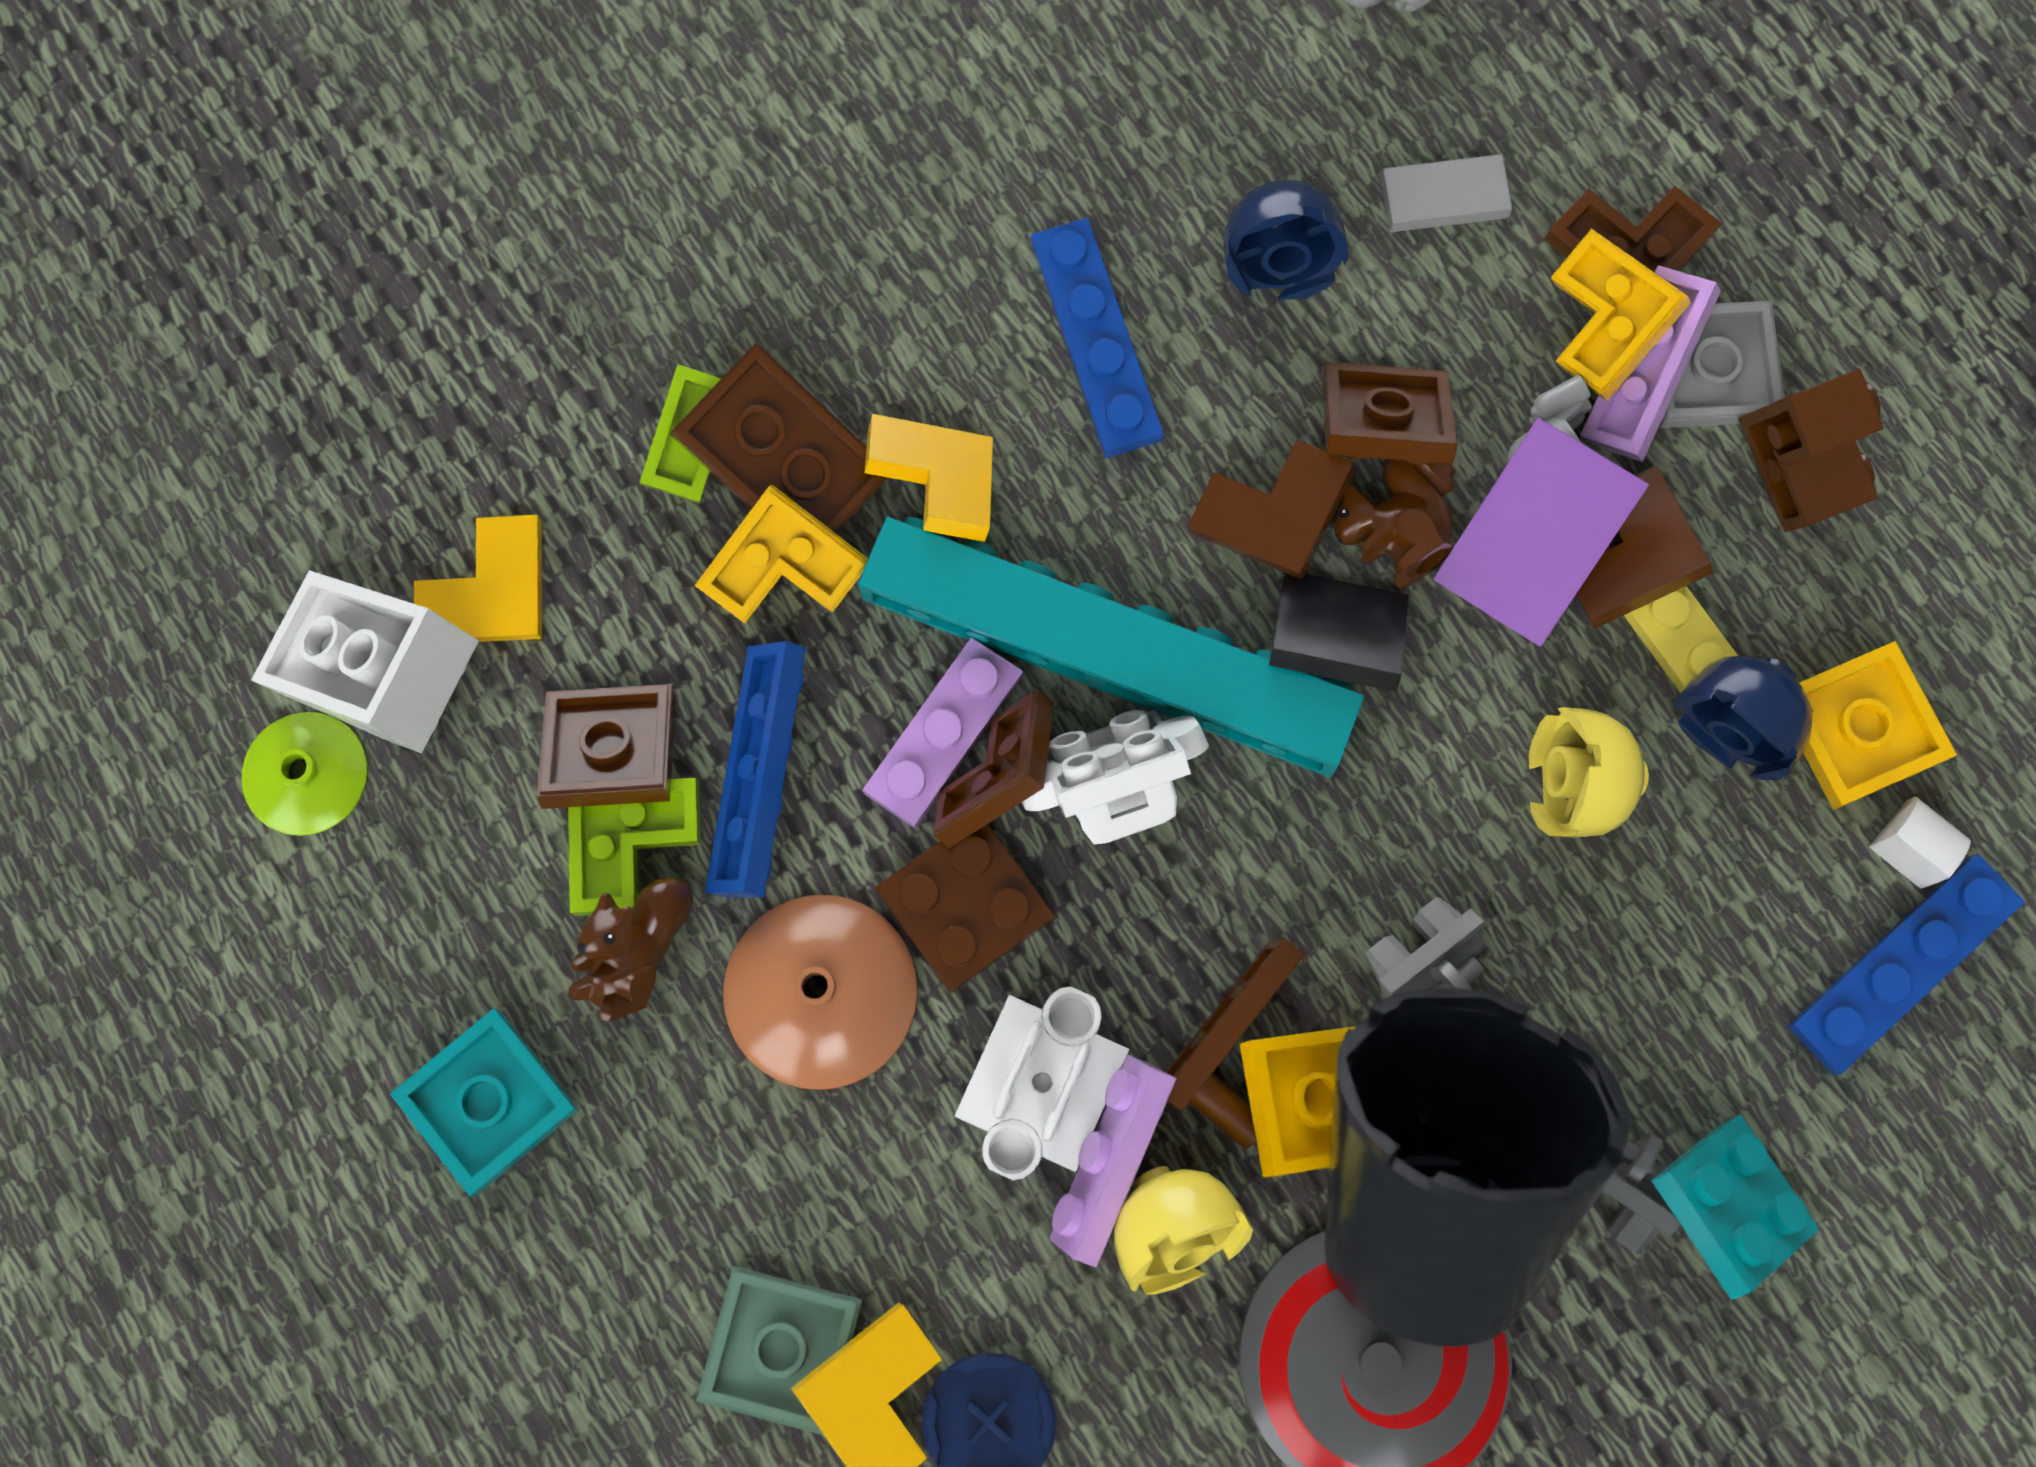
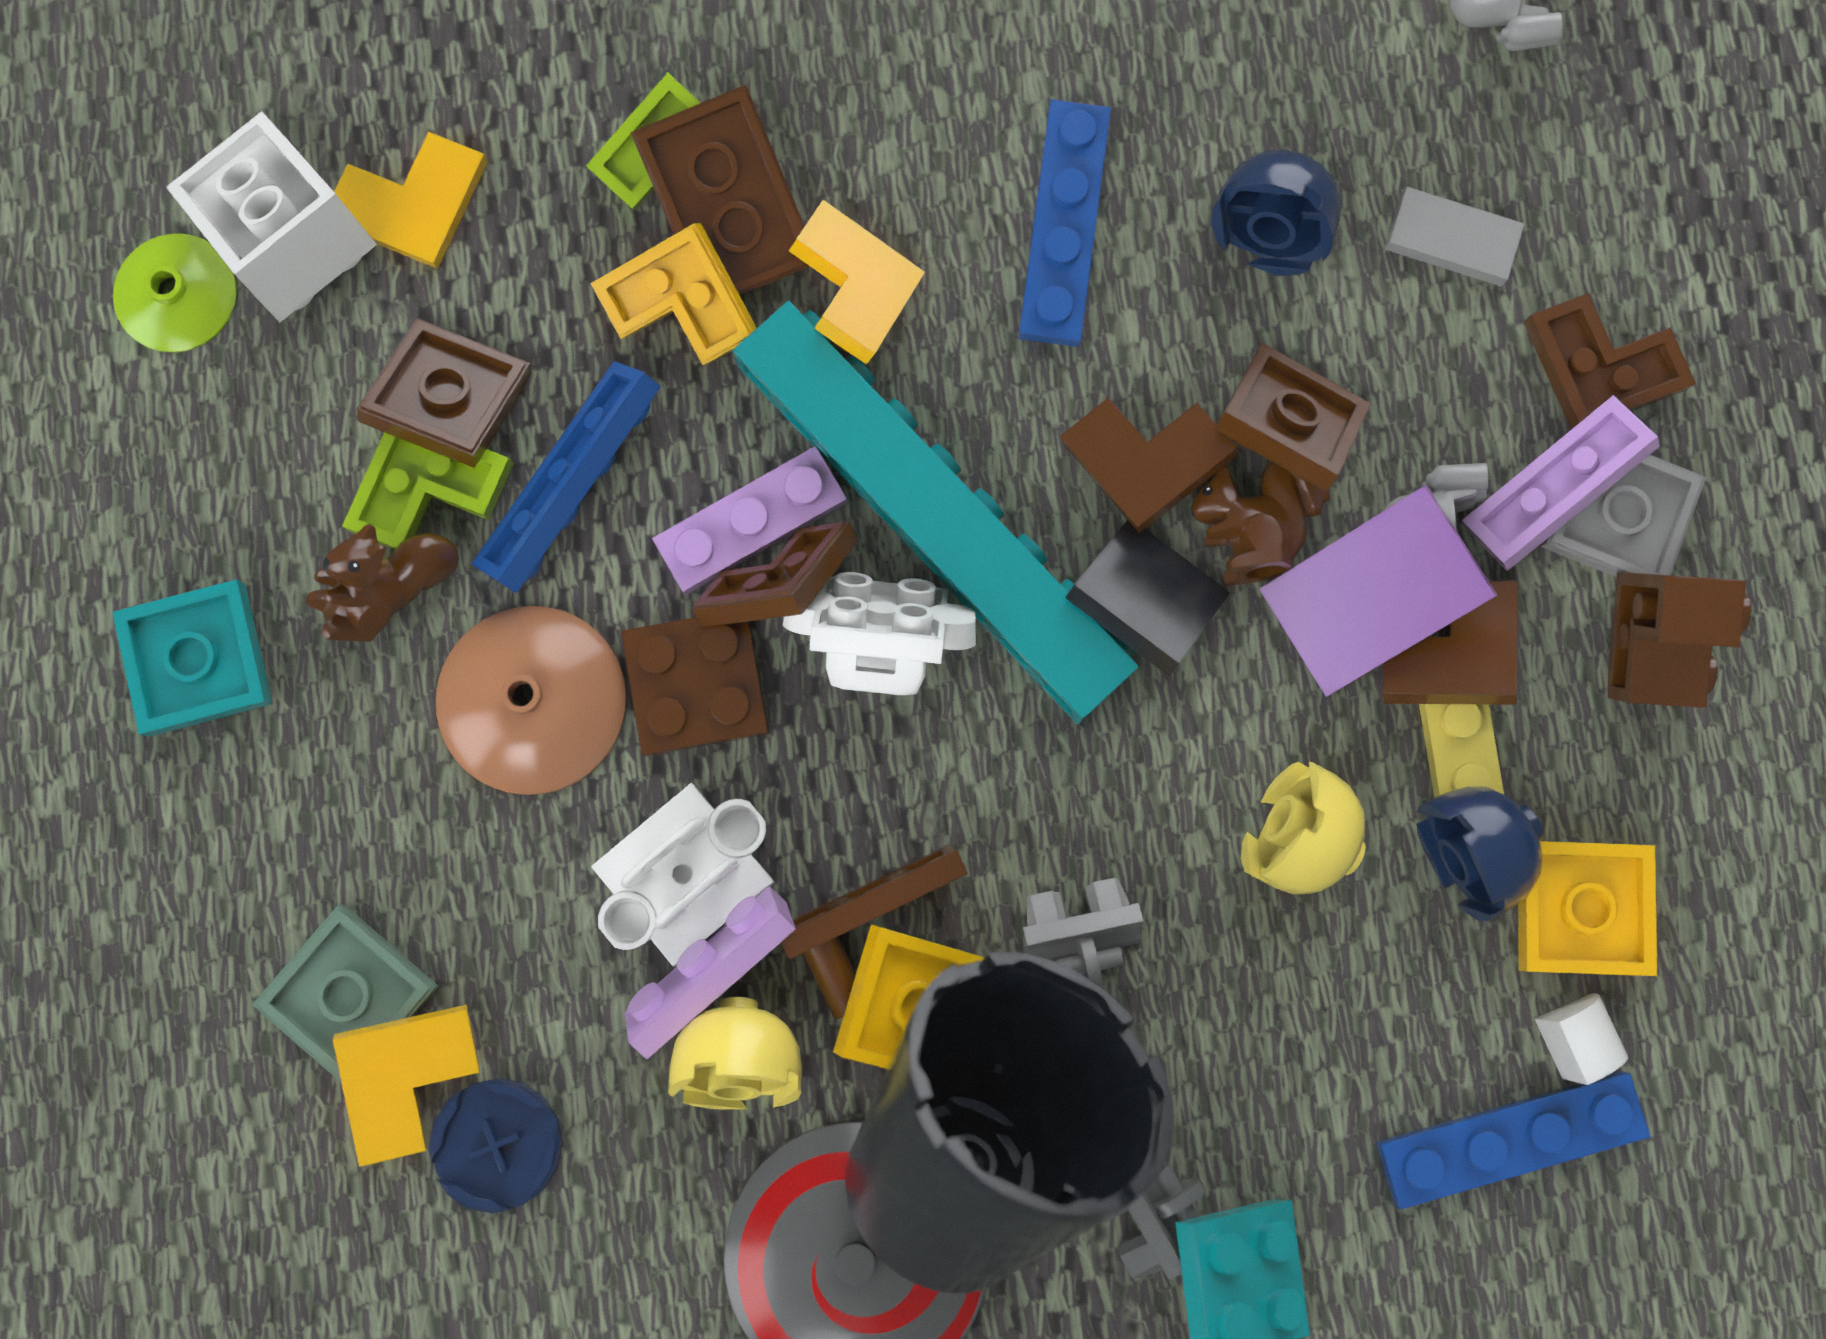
camera: 20 degrees right, 5 degrees up
(1629, 307) = (1566, 424): yellow tile -> none

